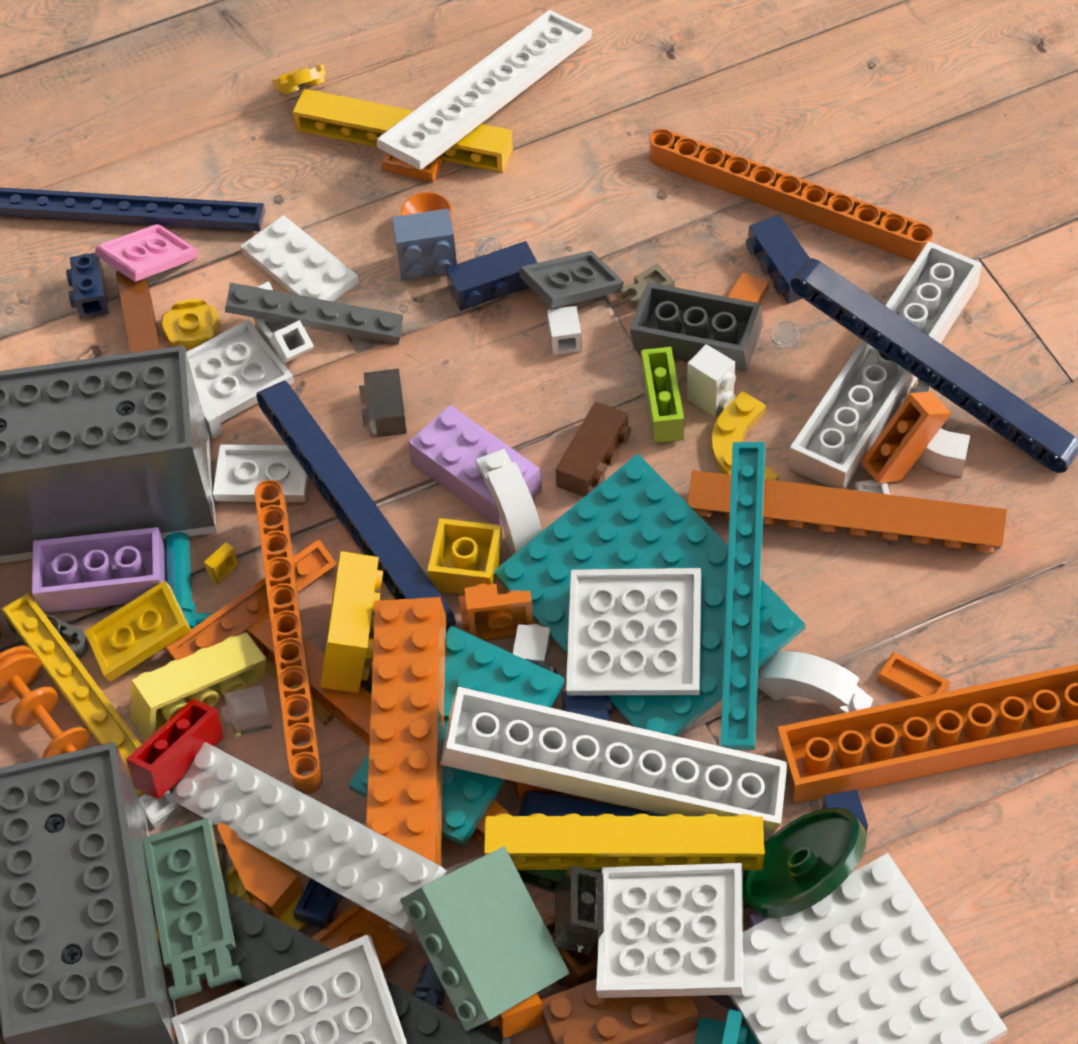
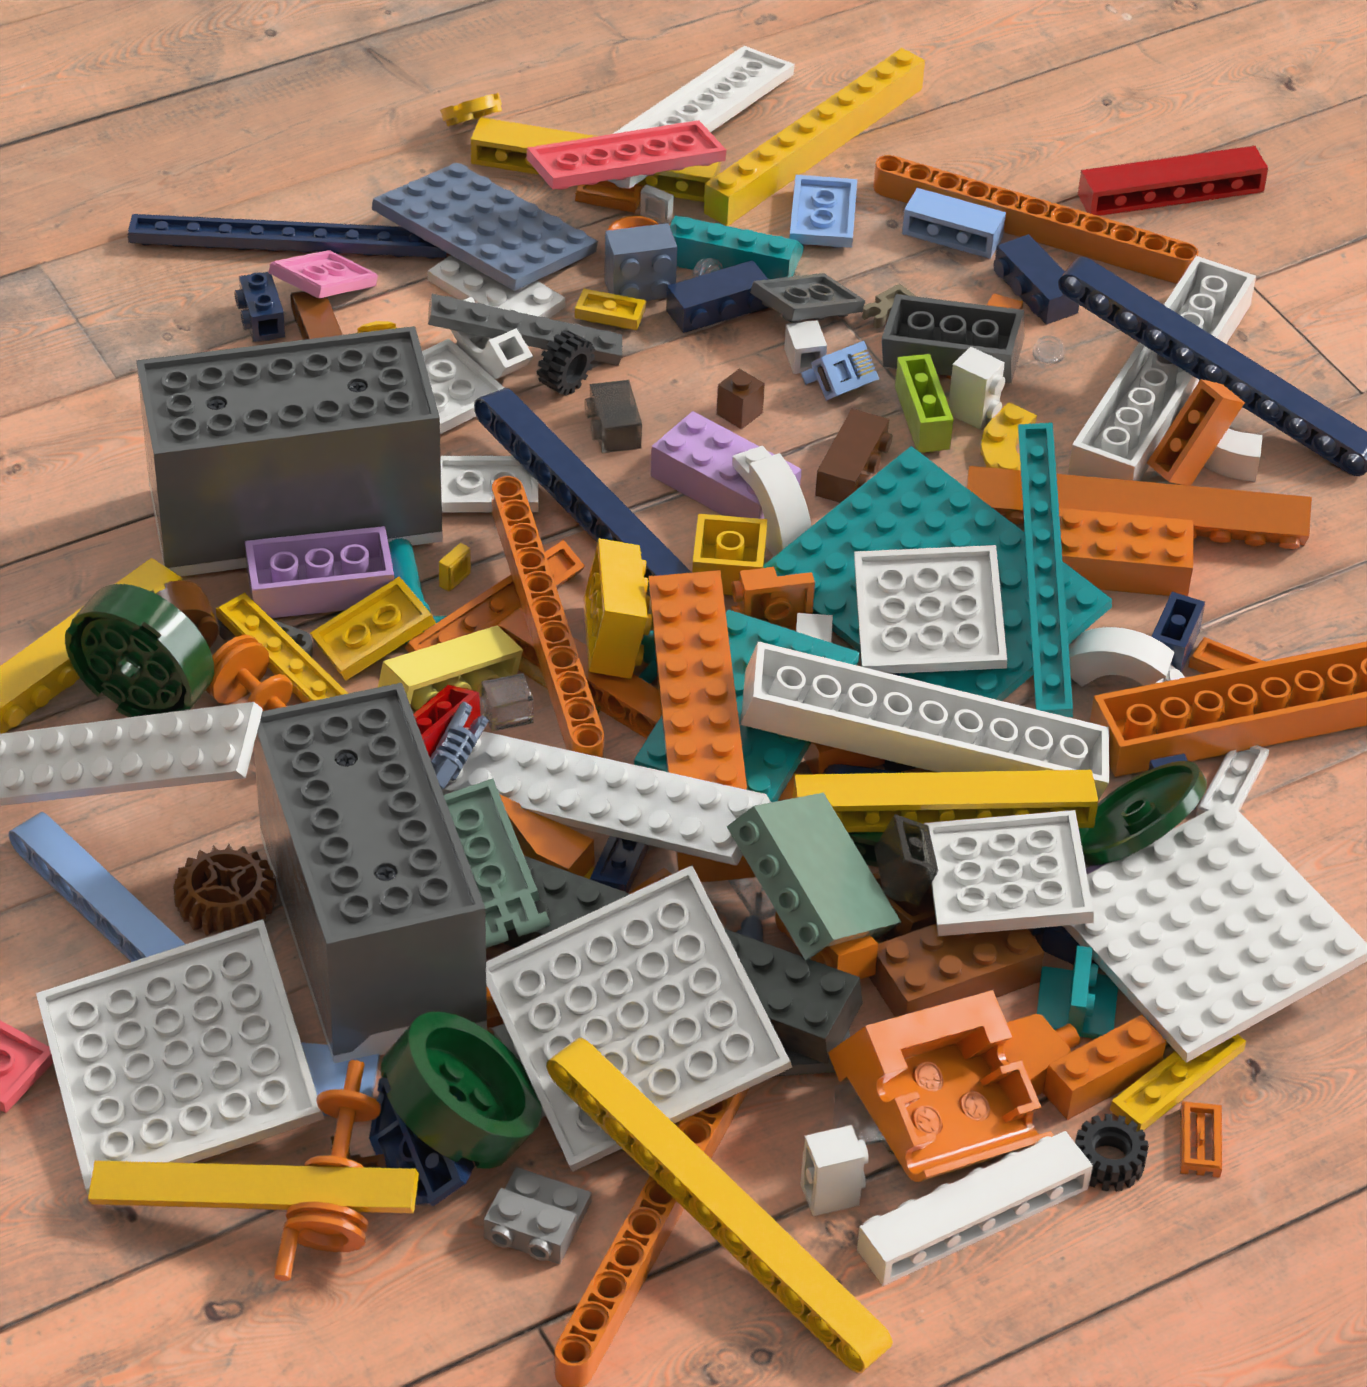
camera: 10 degrees left, 10 degrees down
(186, 770) = (456, 745): none -> sand blue hinge
(295, 201) = (485, 226): none -> sand blue plate
(345, 348) = (566, 362): none -> black tyre
(395, 287) = (610, 309): none -> yellow plate
(418, 138) = (626, 154): none -> coral plate
(450, 178) = (656, 204): none -> white tile
(498, 386) = (740, 398): none -> reddish brown brick
(511, 224) = (732, 246): none -> teal slope
(594, 357) = (842, 371): none -> light blue piece
(599, 106) = (813, 137): none -> yellow brick
(599, 184) = (823, 211): none -> light blue plate
(714, 198) = (953, 223): none -> light blue brick
(826, 559) = (1128, 551): none -> orange brick
(867, 649) = (1180, 626): none -> dark blue brick
(902, 815) = (1234, 778): none -> white tile
(920, 153) = (1172, 181): none -> red brick

